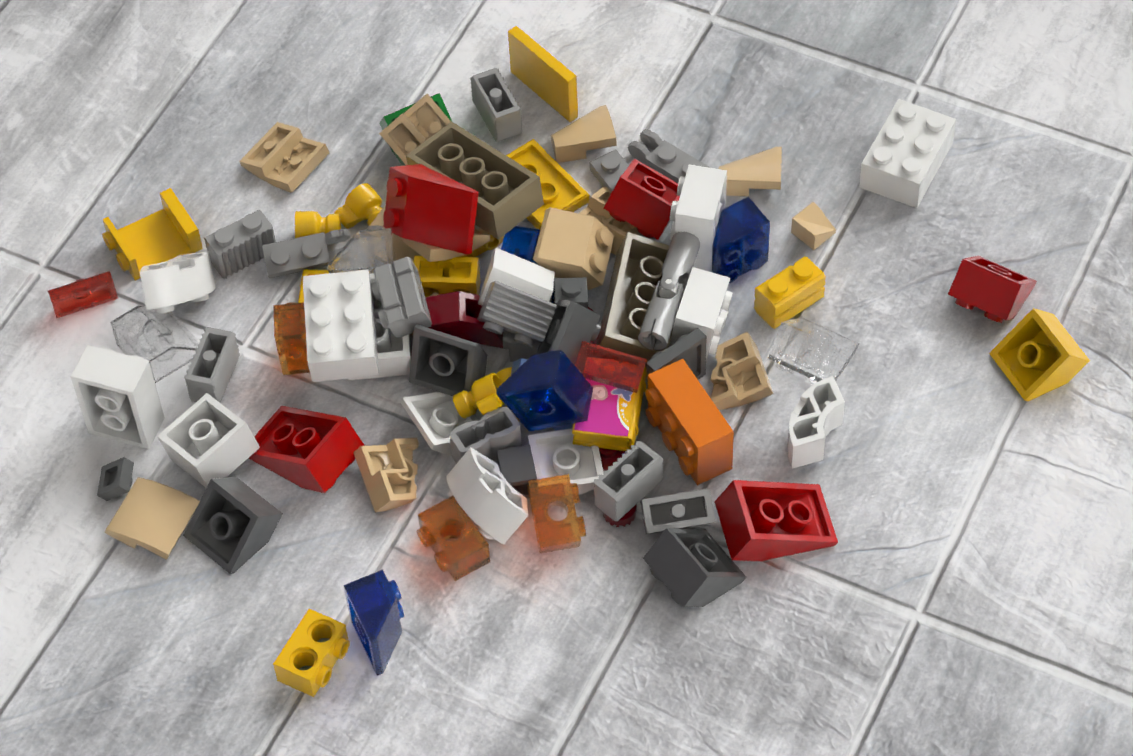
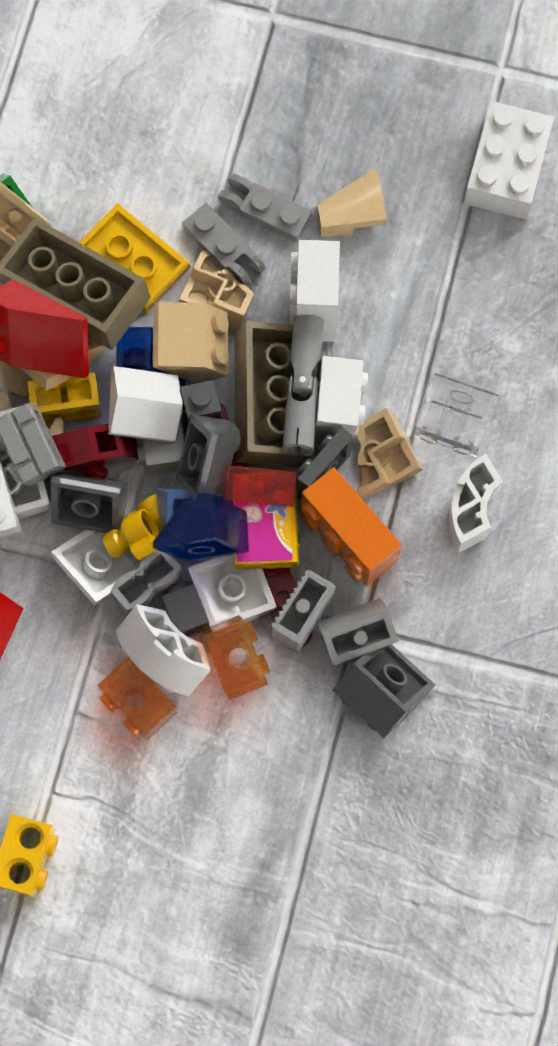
camera: 15 degrees left, 20 degrees up
(375, 616) = (81, 810): clear blue slope -> none
(389, 472) = (55, 633): tan slope -> none
(496, 104) = (70, 171): light grey brick -> none
(516, 313) = (151, 441): light grey brick -> none
(543, 73) = (112, 125): yellow tile -> none
(587, 133) = (170, 188): tan slope -> none
(643, 199) = (253, 266): red slope -> none
(740, 240) = (361, 302): clear blue slope -> none
(773, 519) = (453, 619): red slope -> none
(789, 292) = (419, 350): yellow brick -> none
(812, 226) = (426, 264): tan slope -> none

